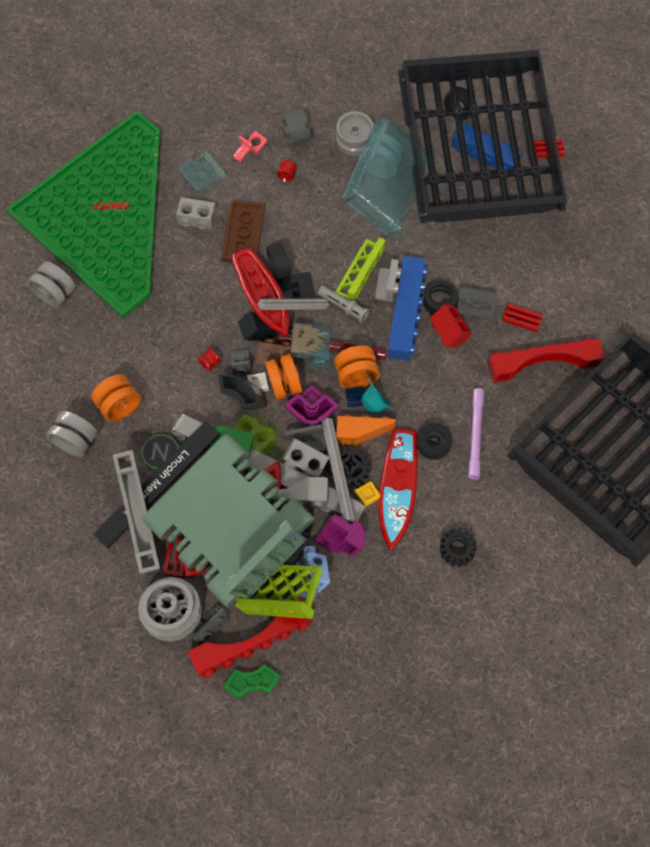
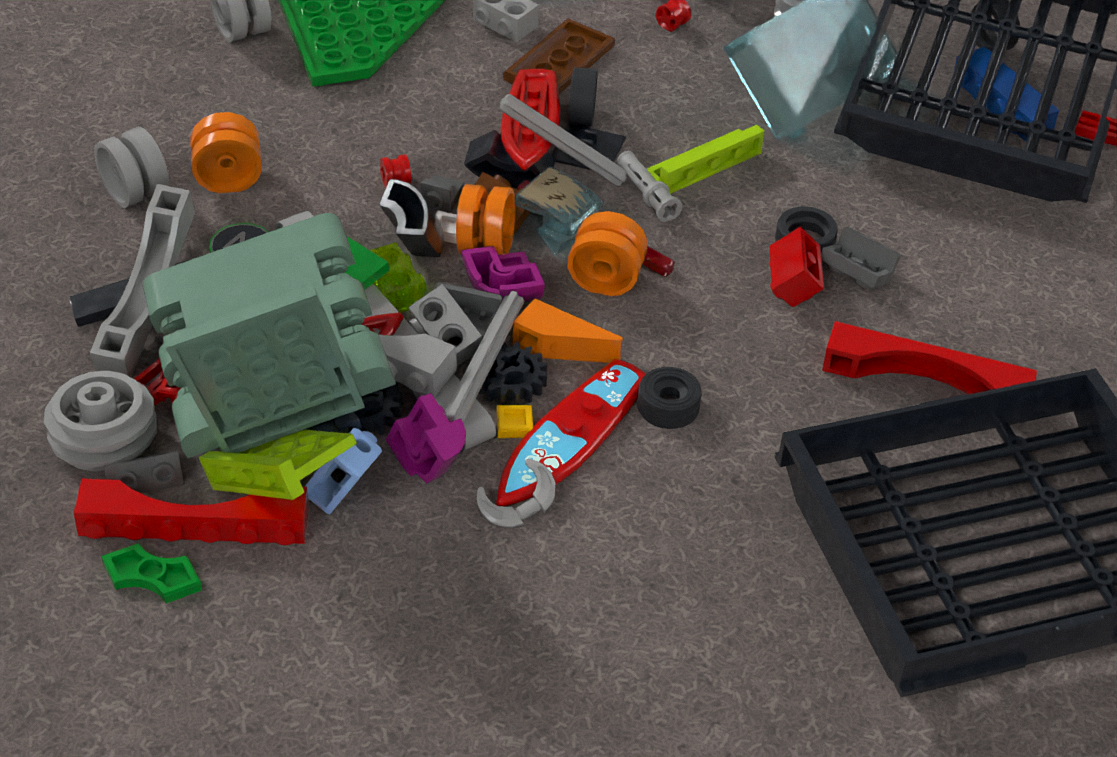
camera: 25 degrees right, 20 degrees down
(354, 396) = (584, 299): clear blue tile -> none
(374, 400) = (607, 305): teal piece -> none
(387, 282) = (737, 183): light grey bracket -> none
(406, 308) = (741, 225): blue brick -> none
(410, 534) = (507, 516): none -> light grey piece
(466, 539) = (605, 560): black tyre -> none
(474, 462) = (718, 451): lavender piece -> none
(524, 315) = (930, 307): red tile -> none

